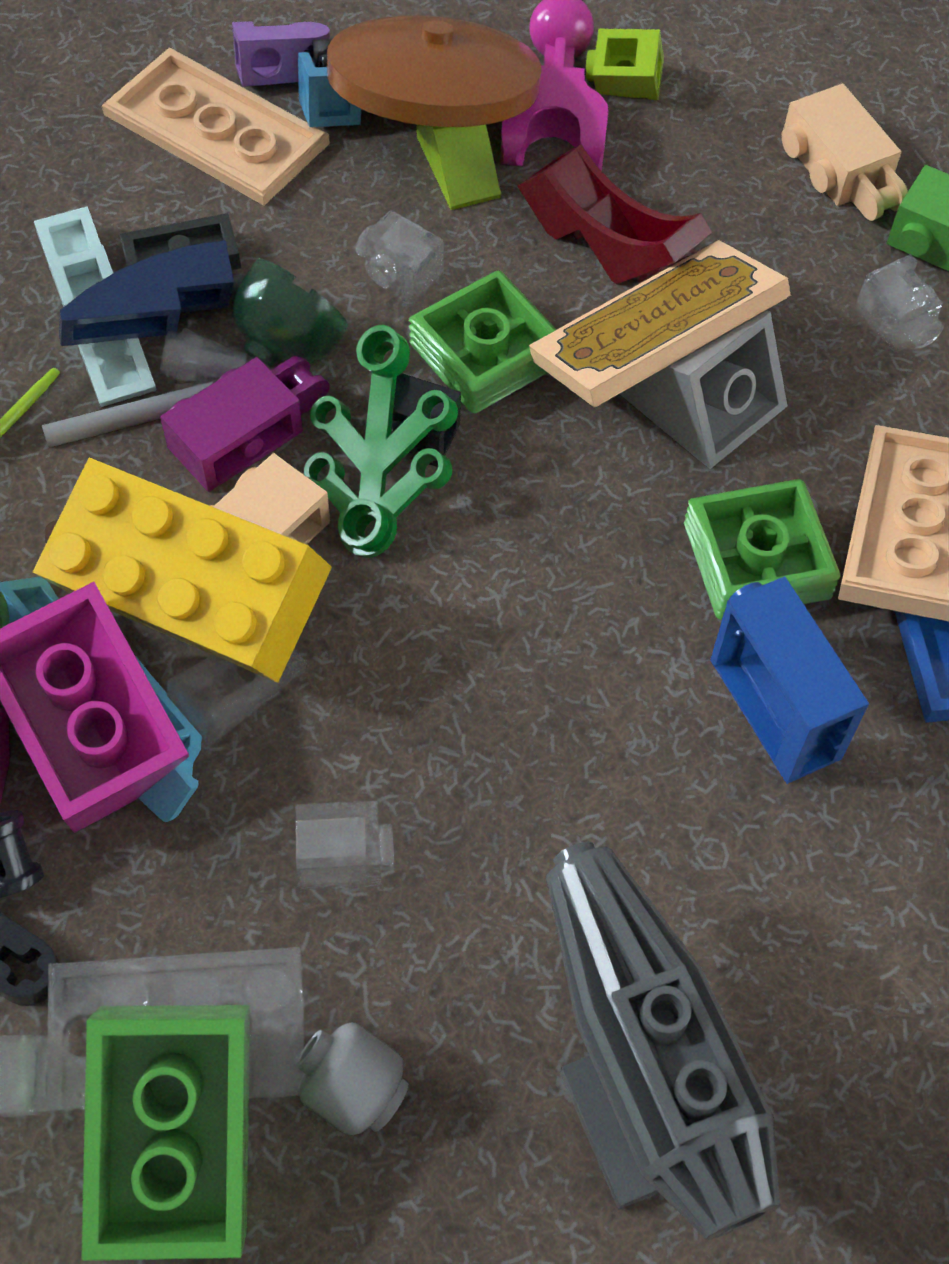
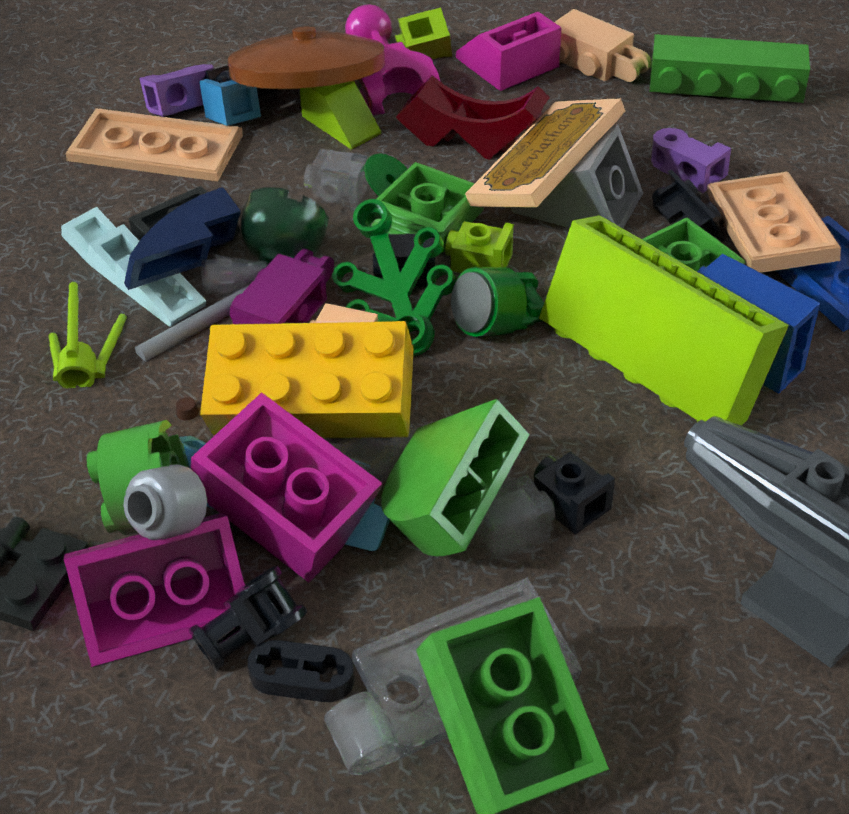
camera: 20 degrees left, 15 degrees down
(273, 777) = (452, 477): none -> bright green brick
(351, 1079) = (611, 645): light grey head -> none
(438, 853) = (575, 490): none -> black brick
(459, 265) = (382, 171): none -> green piece
(480, 521) = (495, 301): none -> green piece
(520, 429) = (479, 246): none -> lime brick
(664, 642) = (661, 322): none -> lime brick
(731, 127) = (514, 51): none -> dark pink slope
(820, 441) = (685, 200): none -> black hinge
(870, 378) = (690, 158): none -> medium lavender leg
(900, 305) = (684, 112): clear brick -> none

